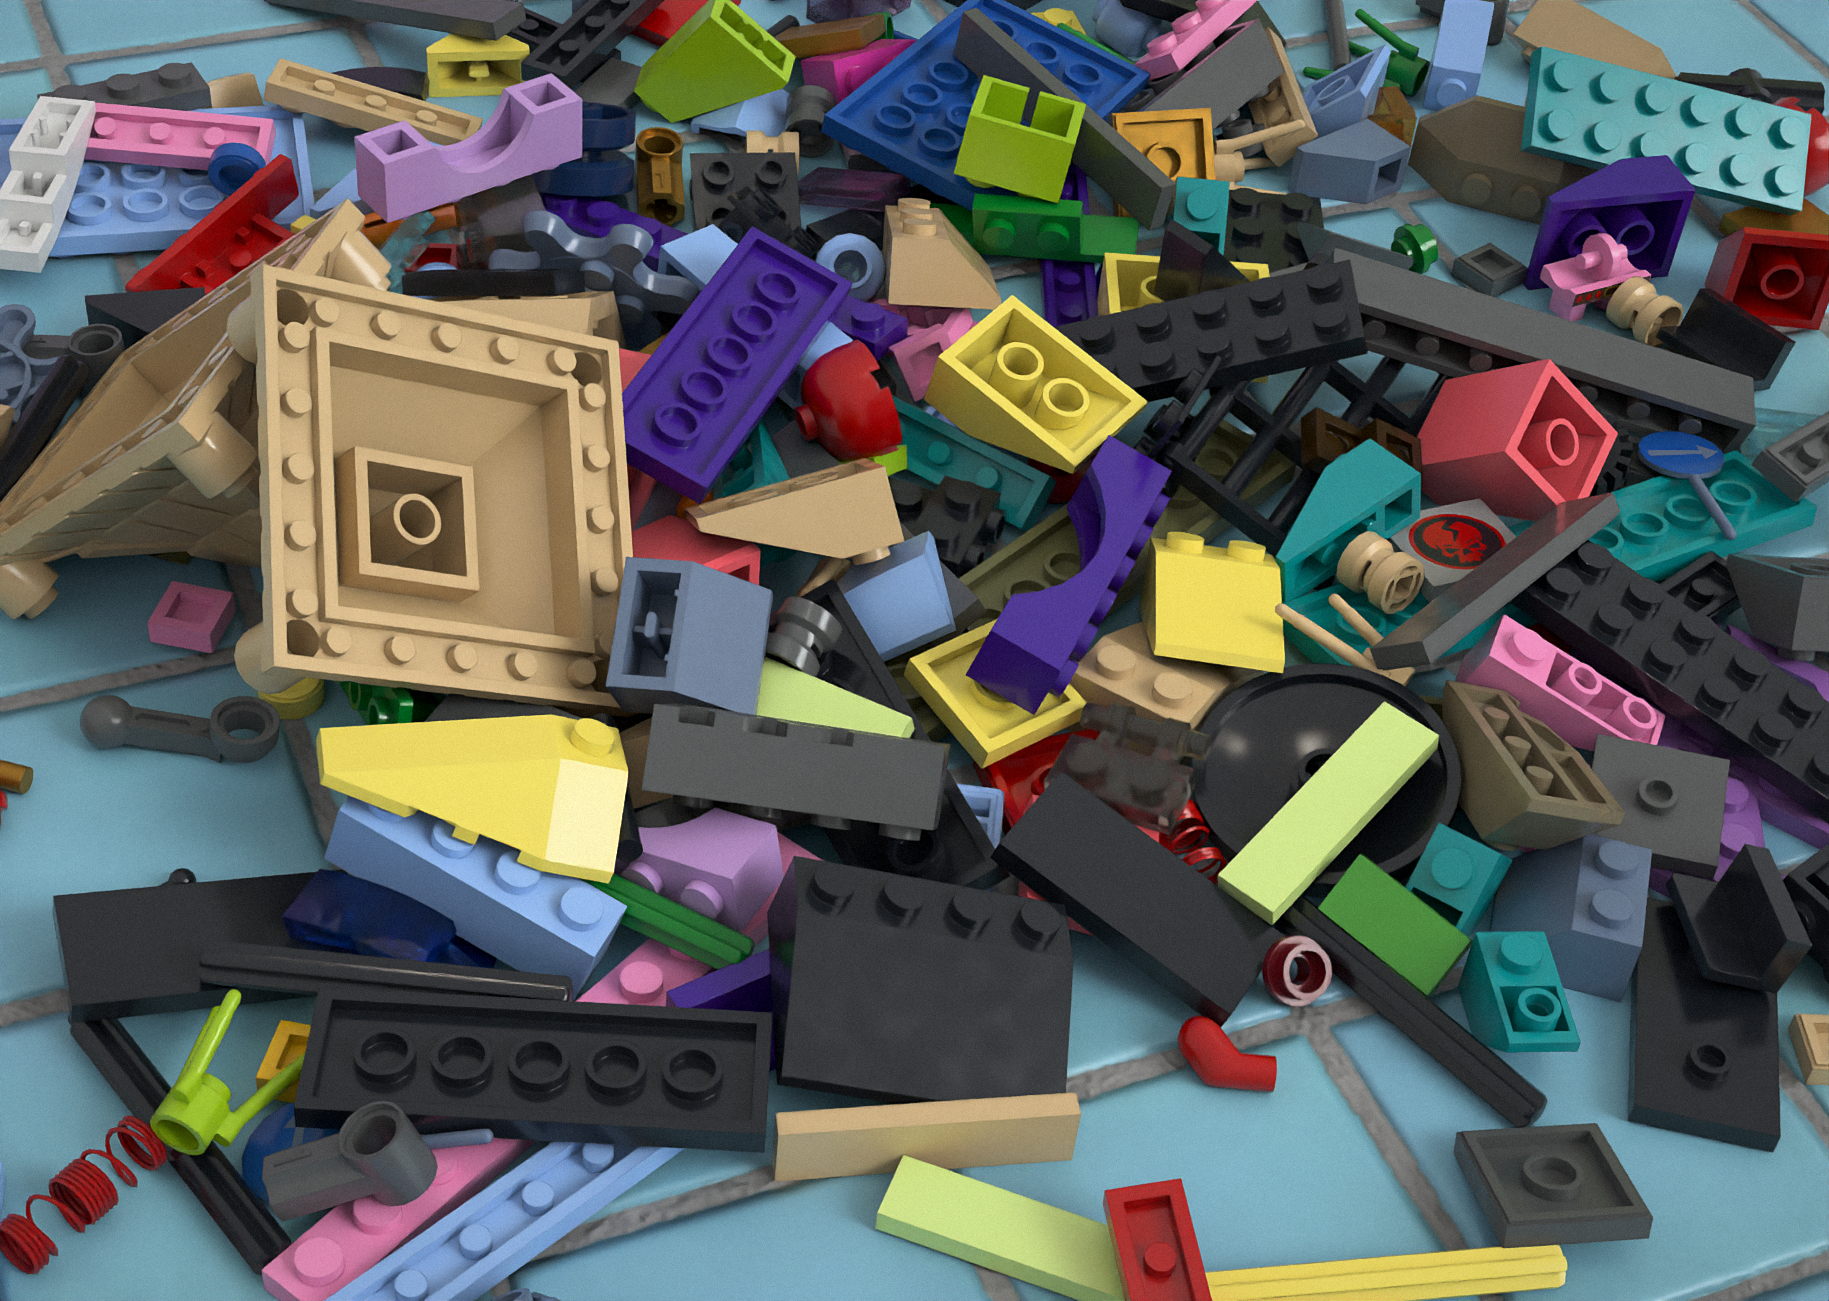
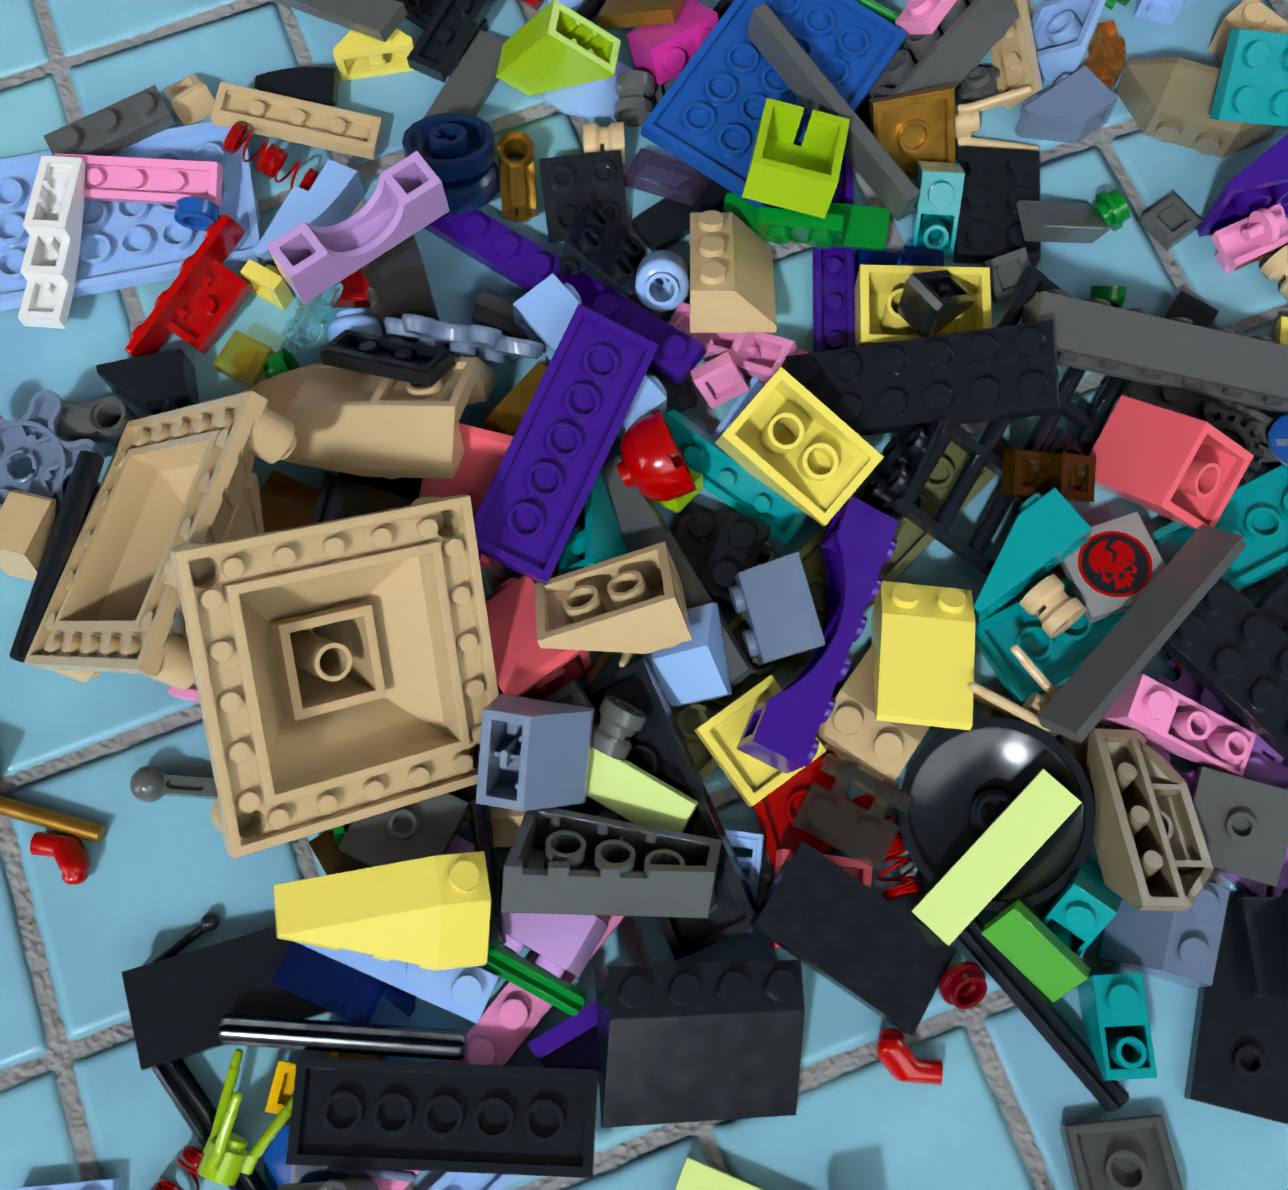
camera: 10 degrees right, 30 degrees up
(333, 141) = (269, 161): none -> red piece
(938, 1133) = (701, 1145): tan tile -> none
(1016, 531) = (777, 610): none -> sand blue slope

